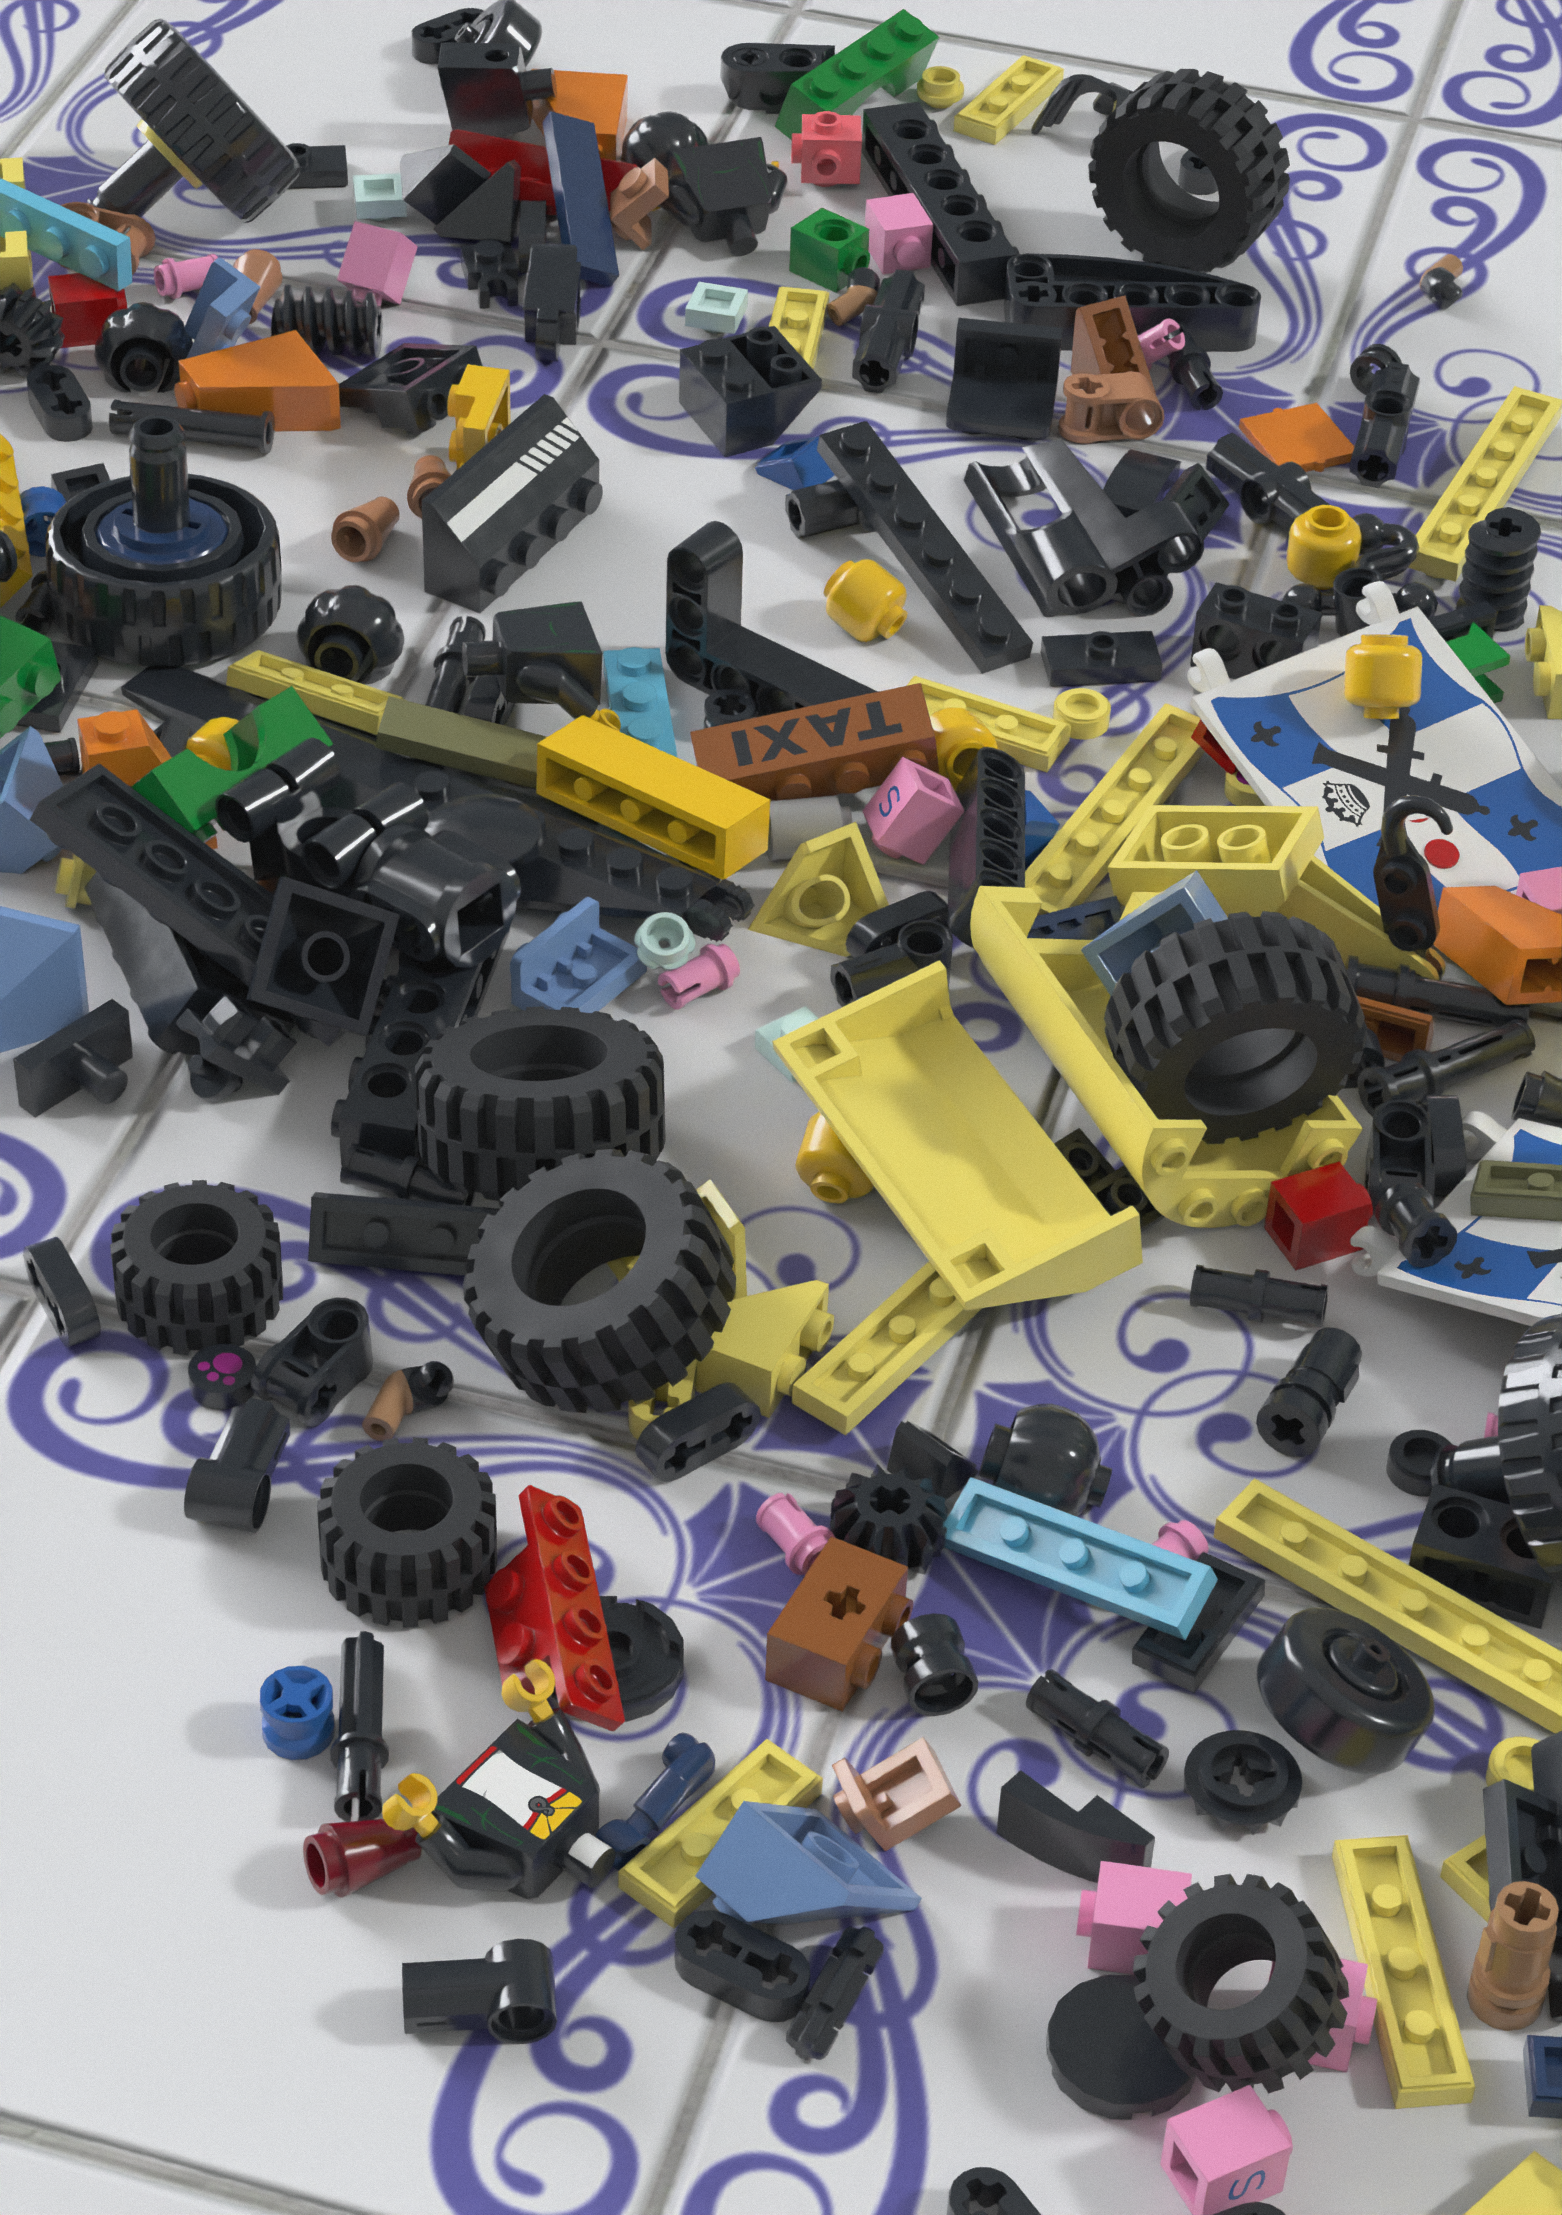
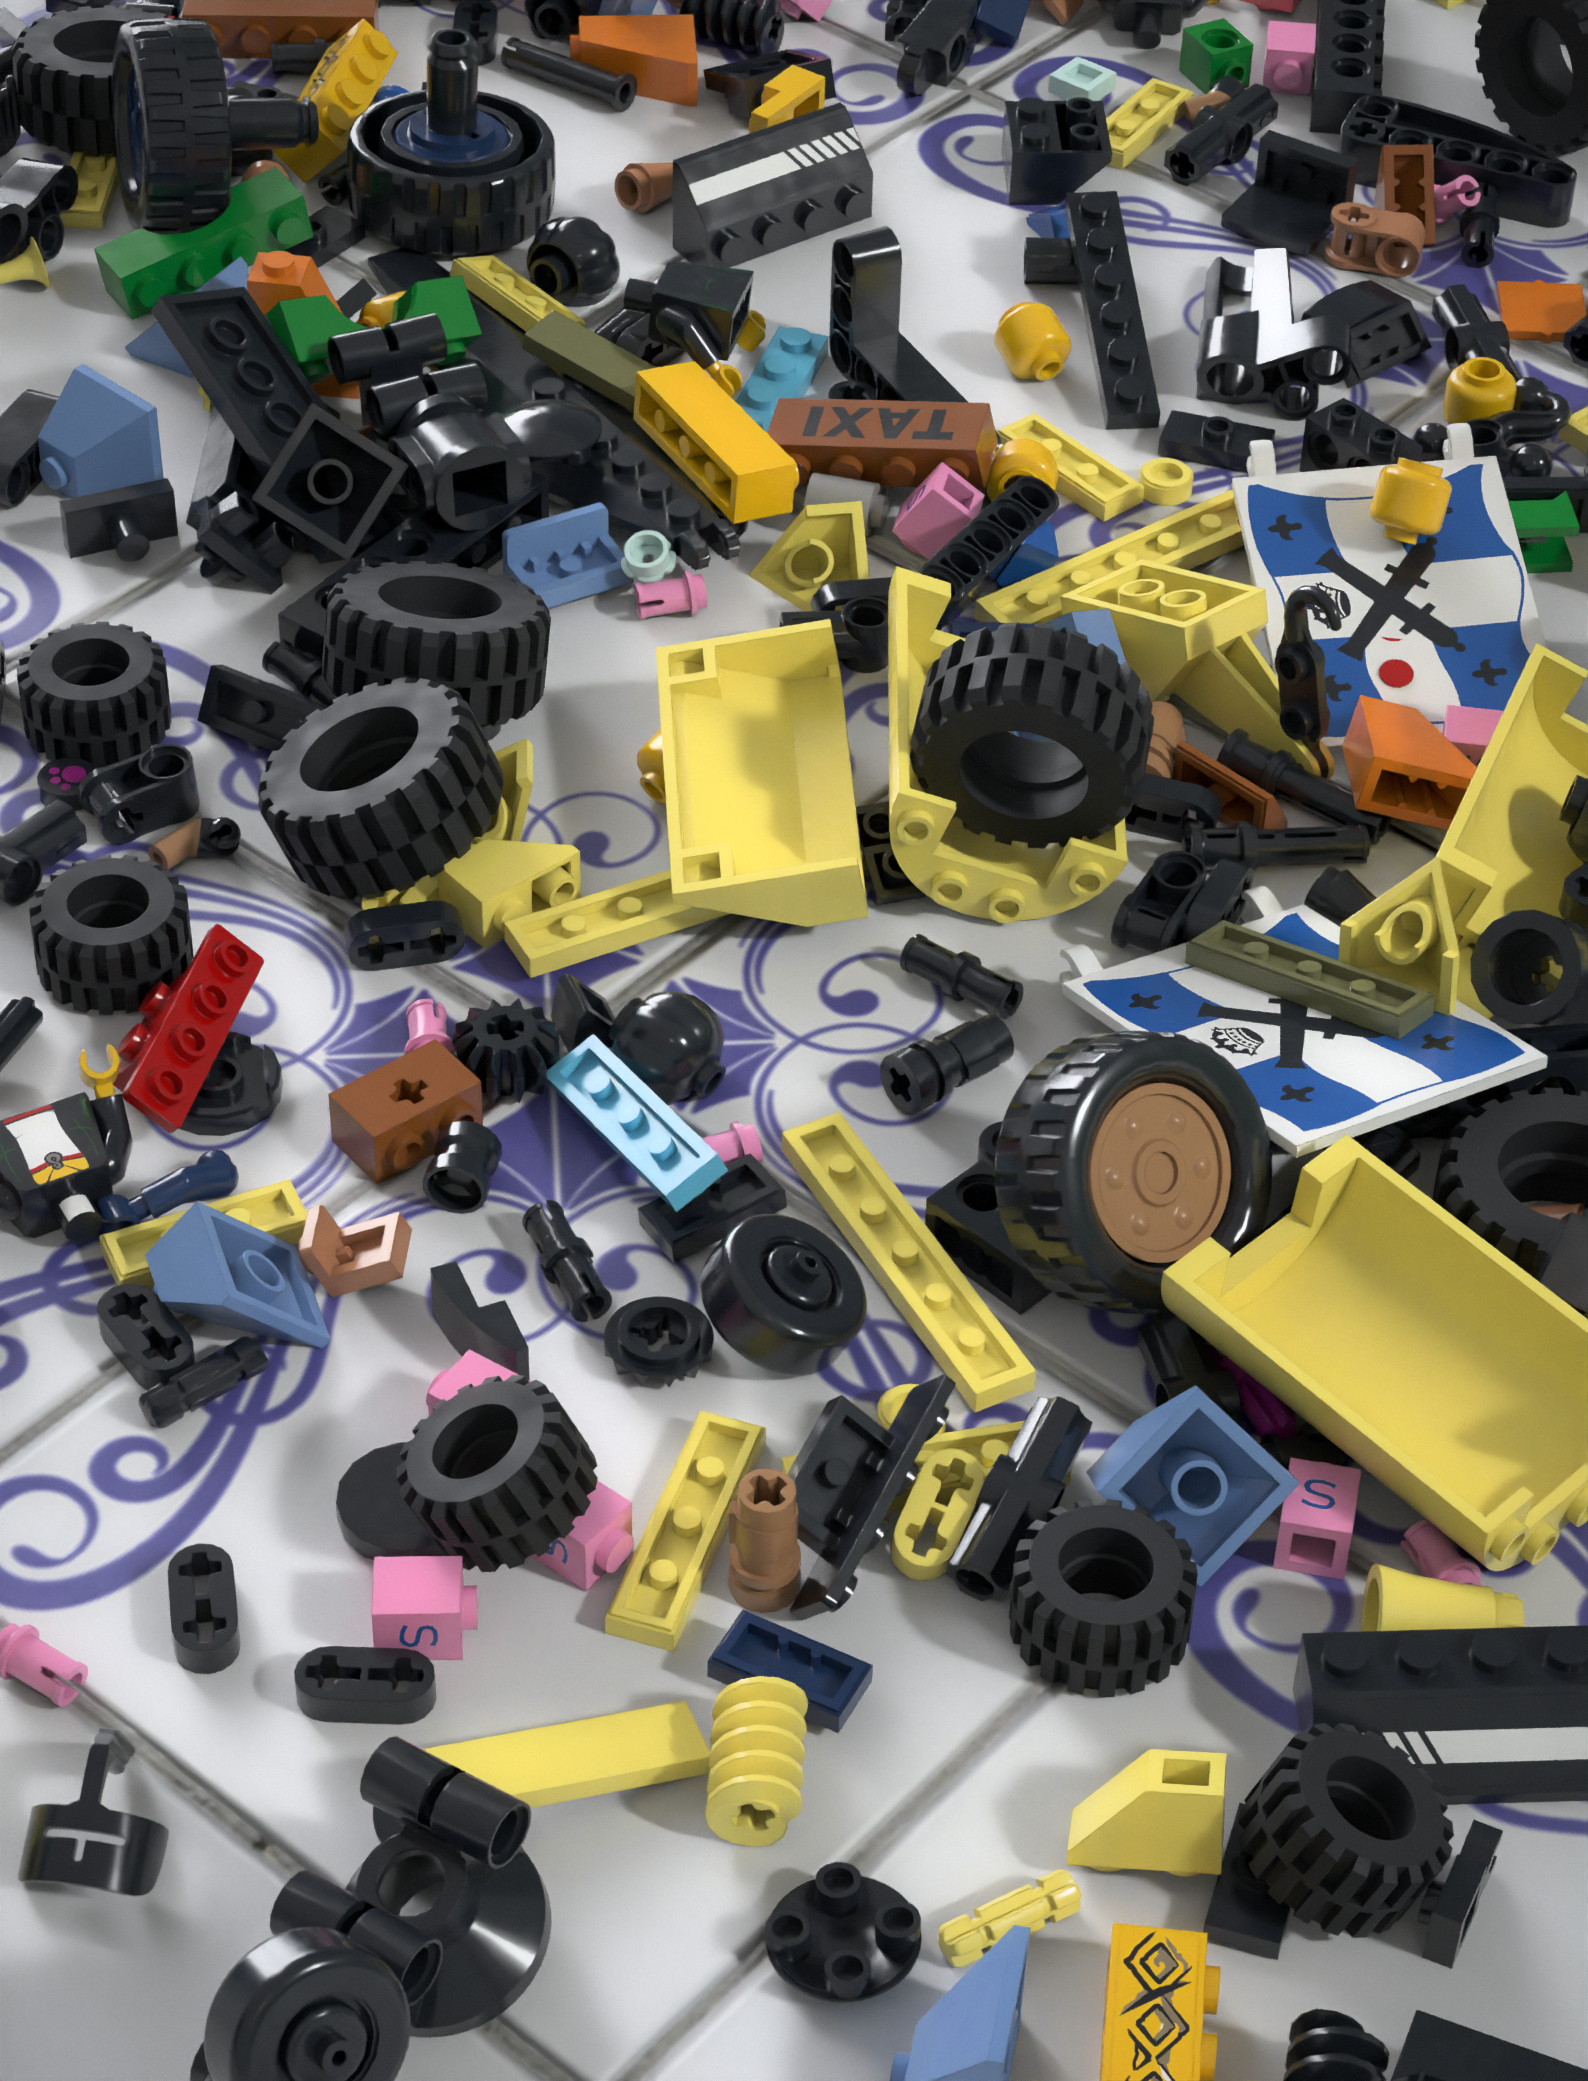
camera: 25 degrees right, 0 degrees up
(1316, 1214) = (1057, 919): red brick -> none
(1421, 1231) = (1113, 948): black bush -> none

